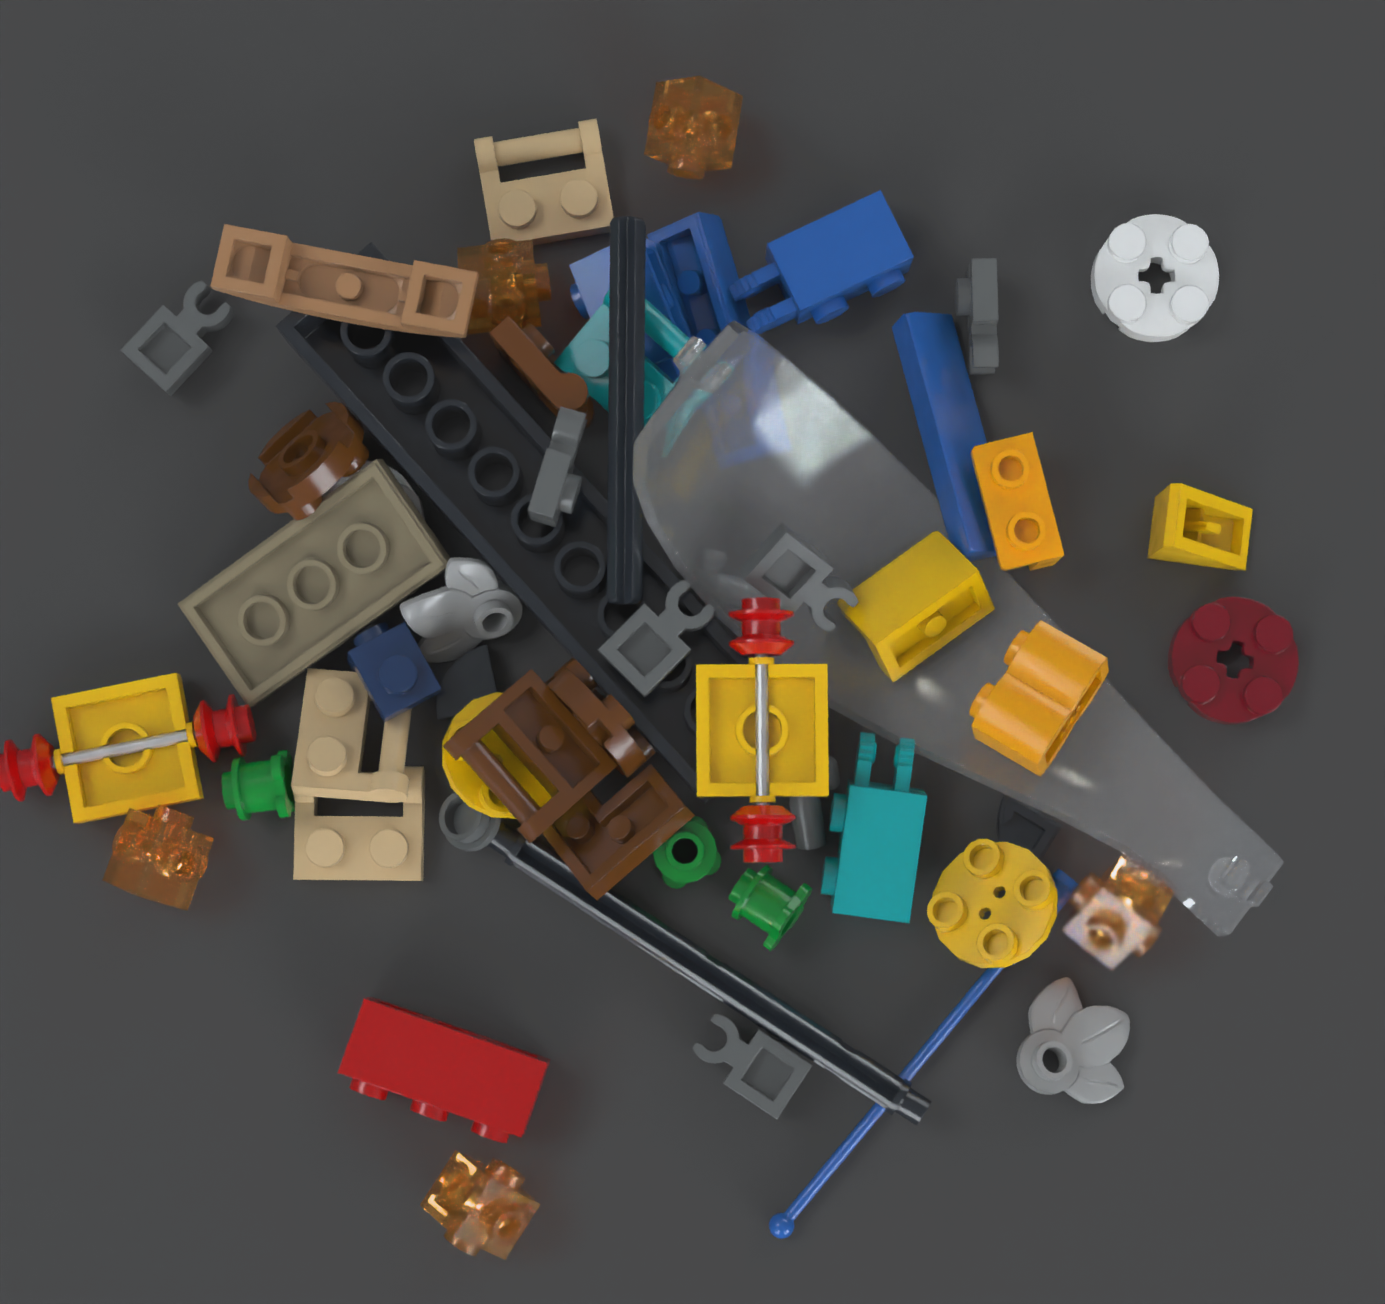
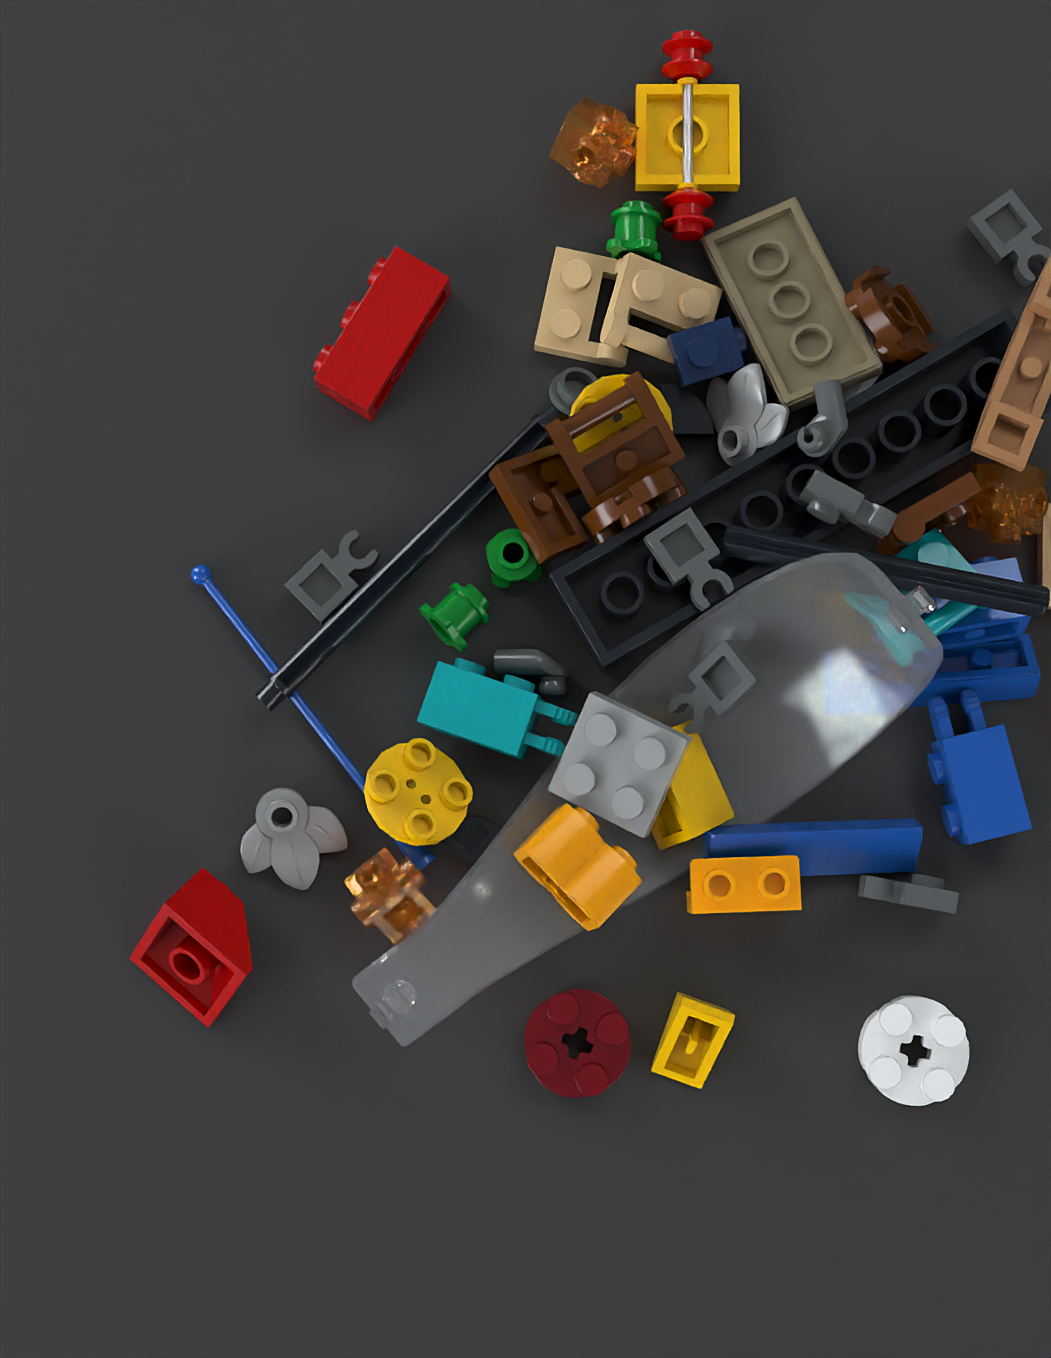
camera: 105 degrees right, 0 degrees up
(461, 507) = (830, 422): none -> dark grey arm
(488, 1214) = (268, 338): clear orange brick -> none
(762, 730) = (597, 627): yellow plate -> none
(912, 673) = (619, 764): none -> light grey plate
(1226, 1123) = (198, 946): none -> red slope

